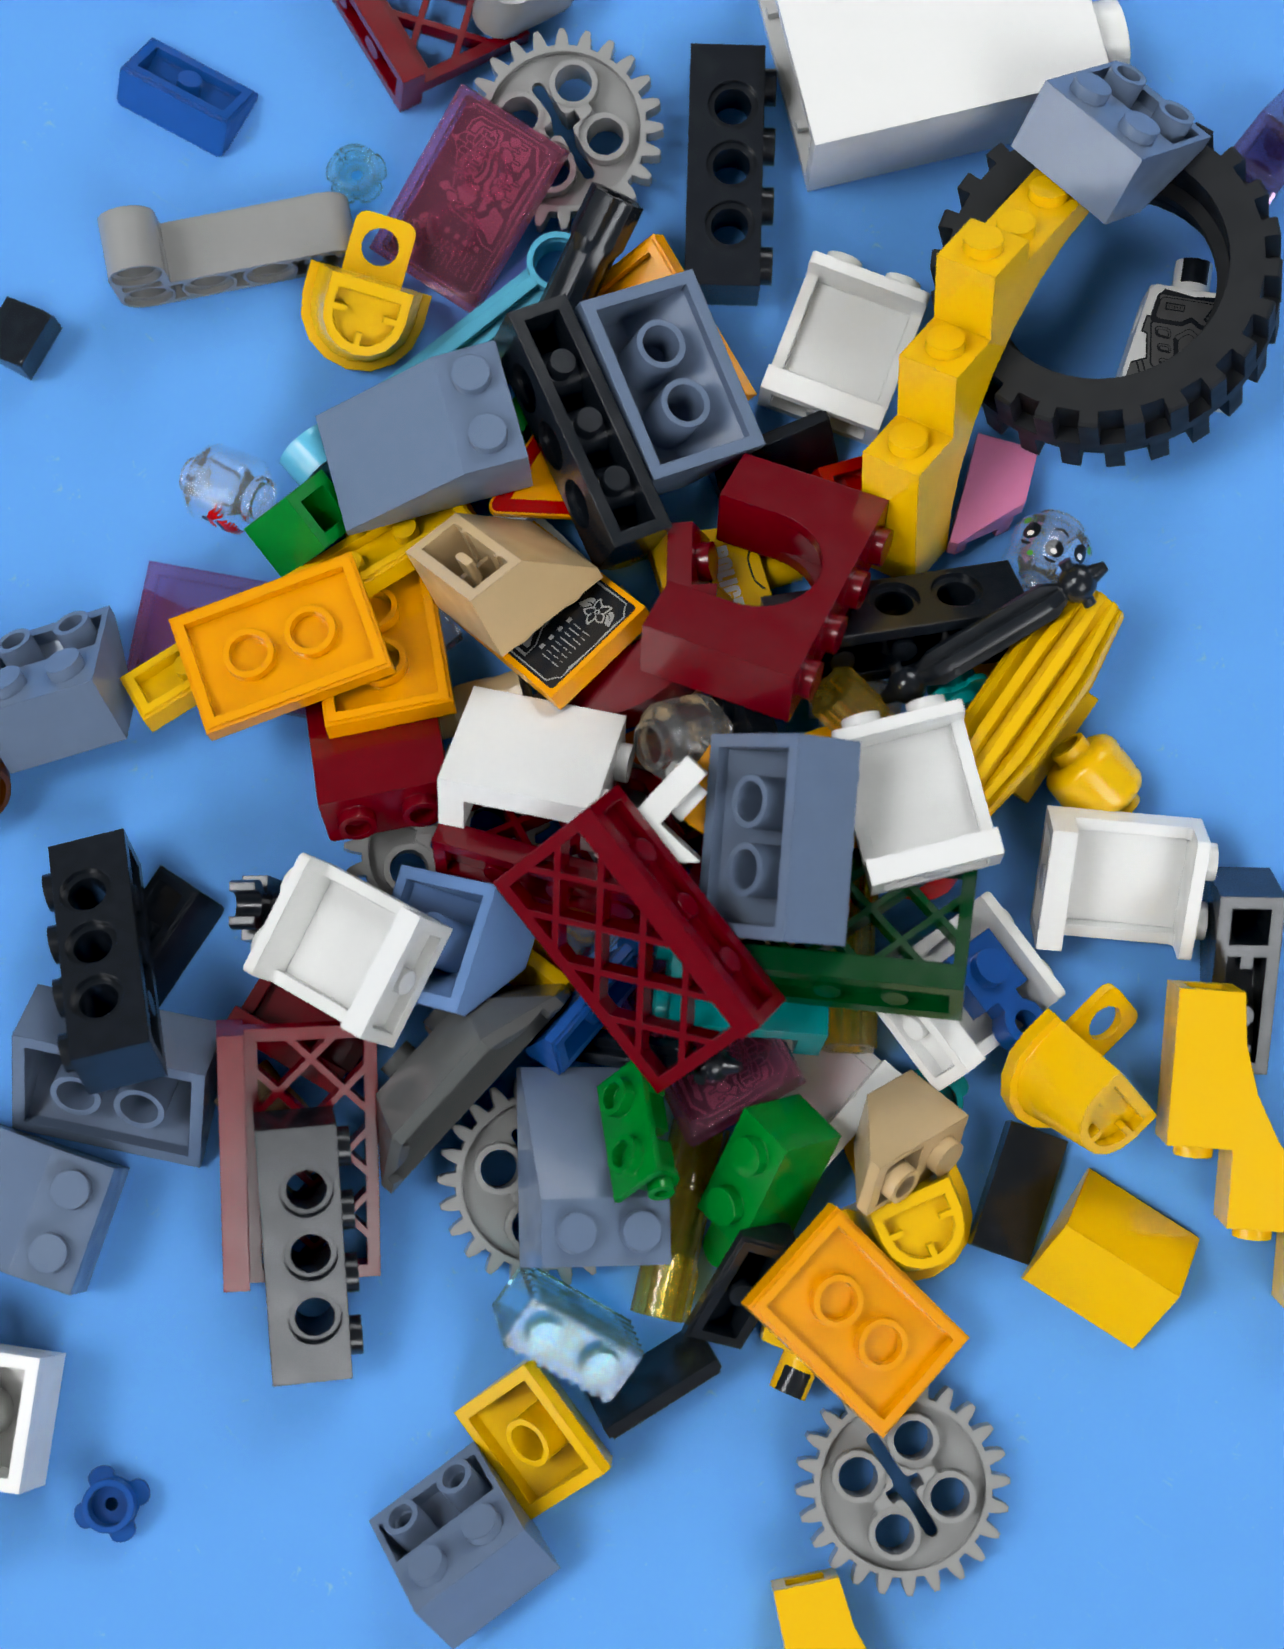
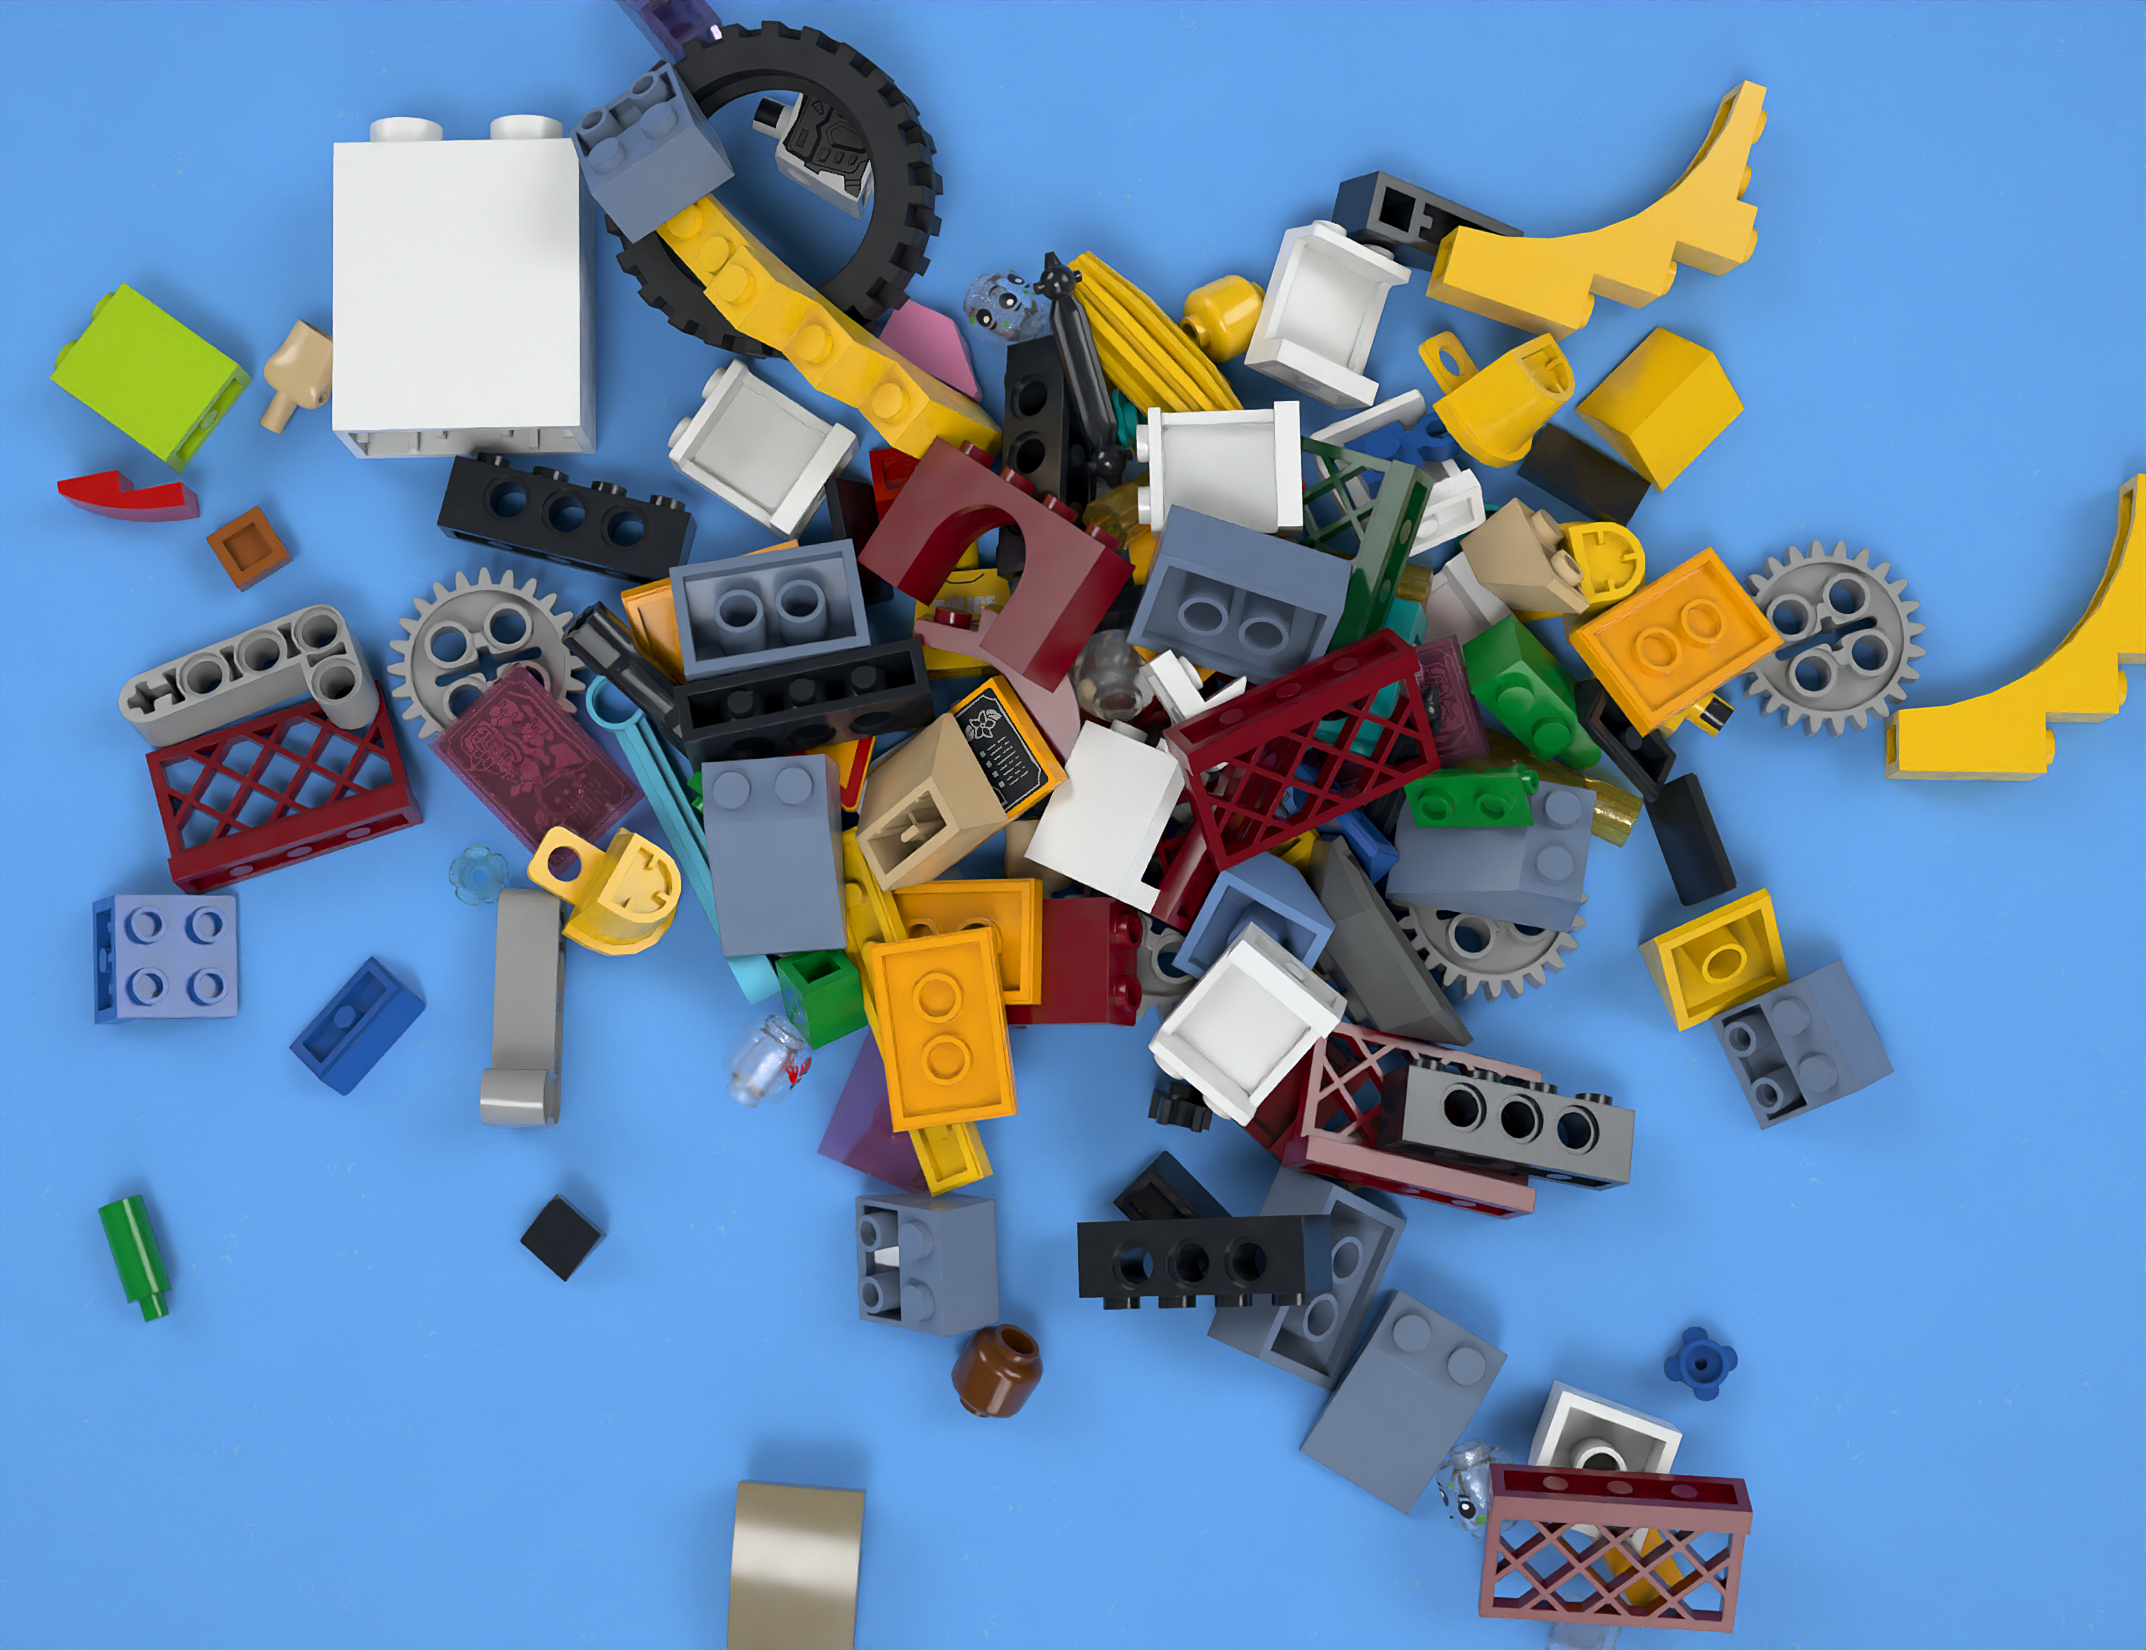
camera: 80 degrees left, 0 degrees up
(567, 1332) = (1633, 905): clear light blue brick -> none

